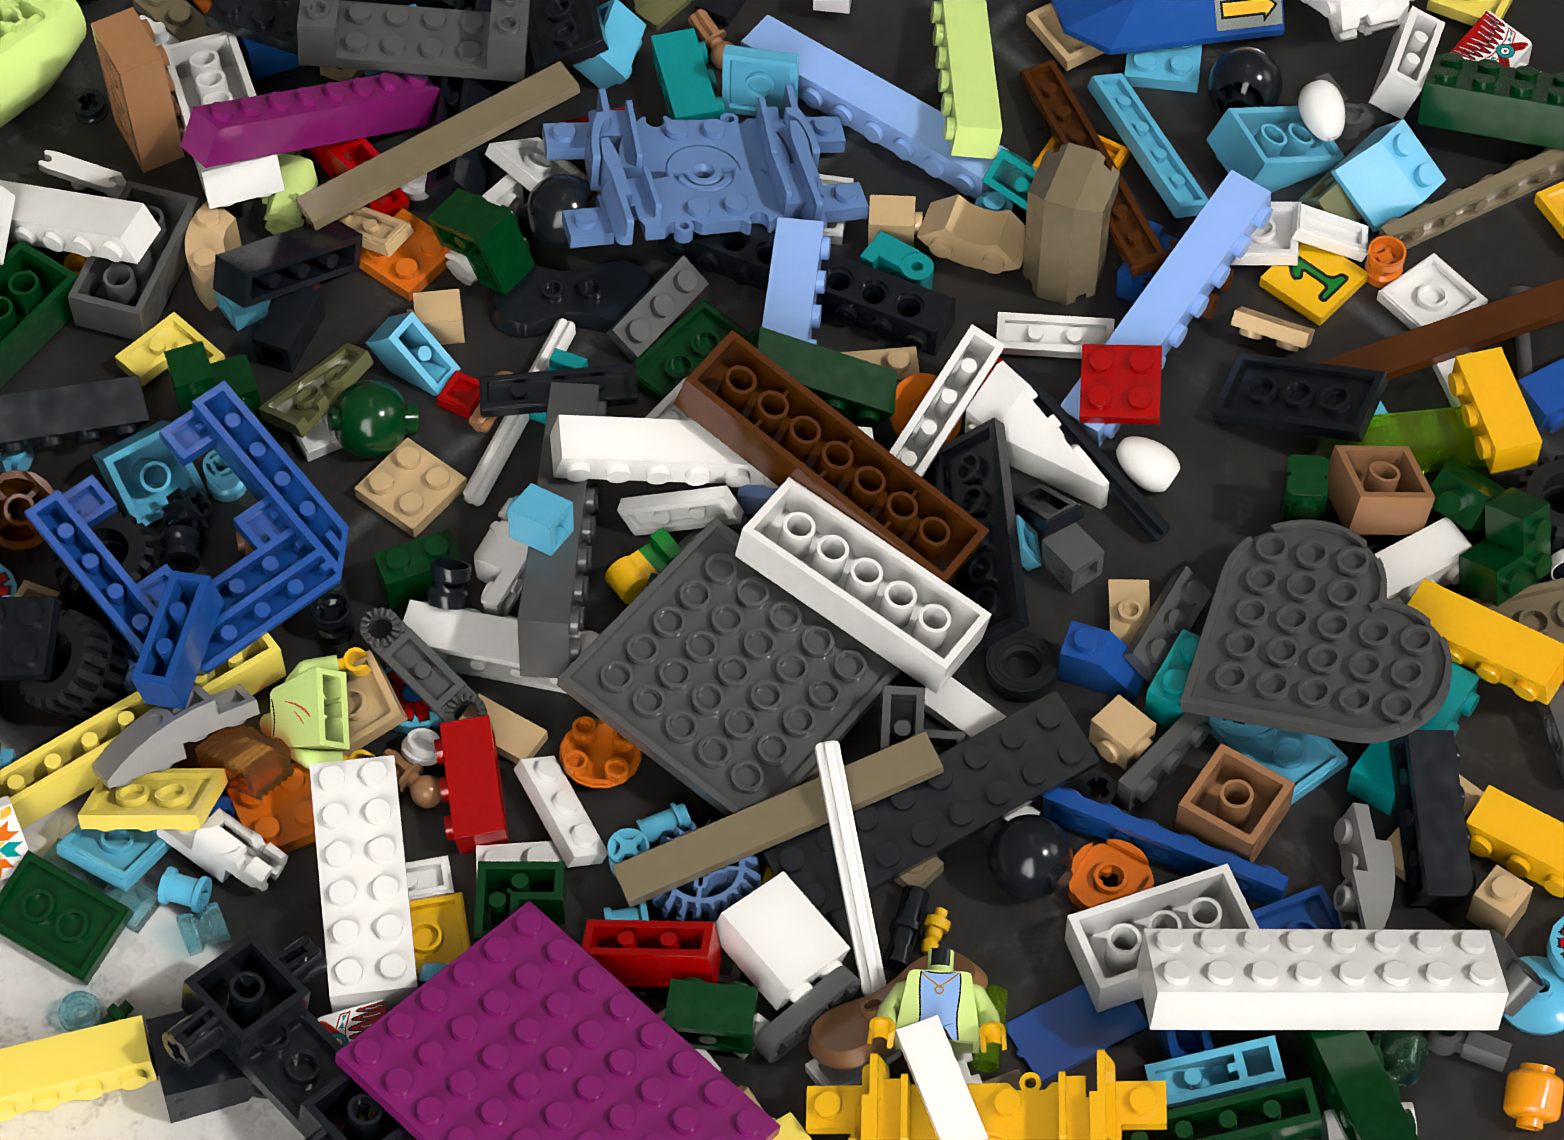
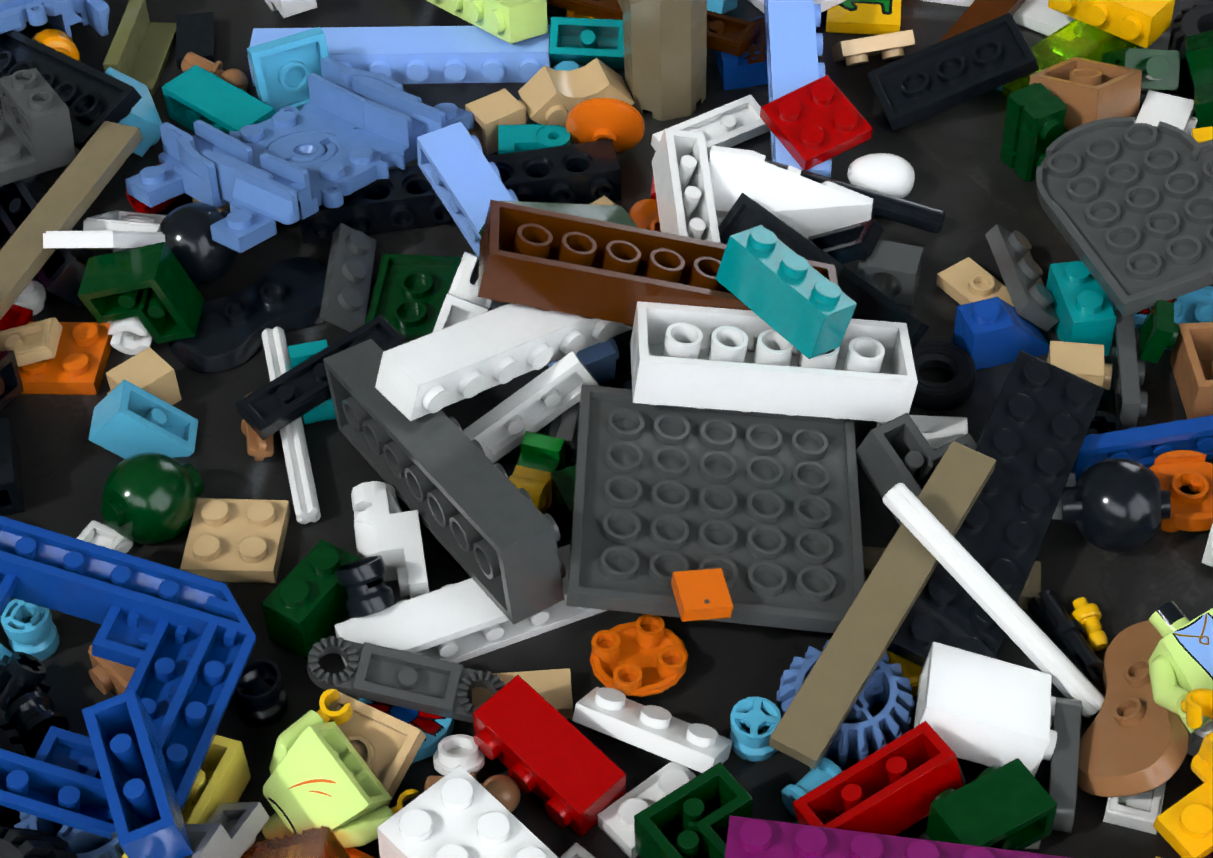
camera: 35 degrees left, 10 degrees down
(311, 395) = (75, 494): olive wing -> none
(460, 395) = (220, 439): red tile -> none
(481, 178) = (100, 239): none -> white tile
(540, 519) = (439, 452): medium azure brick -> none
(647, 736) = (701, 594): none -> orange tile
(664, 822) = (763, 676): medium azure pin -> none
(895, 536) = (785, 291): none -> teal brick
(962, 283) = (605, 120): none -> orange dish
(1203, 740) = (1158, 331): none -> dark green plate

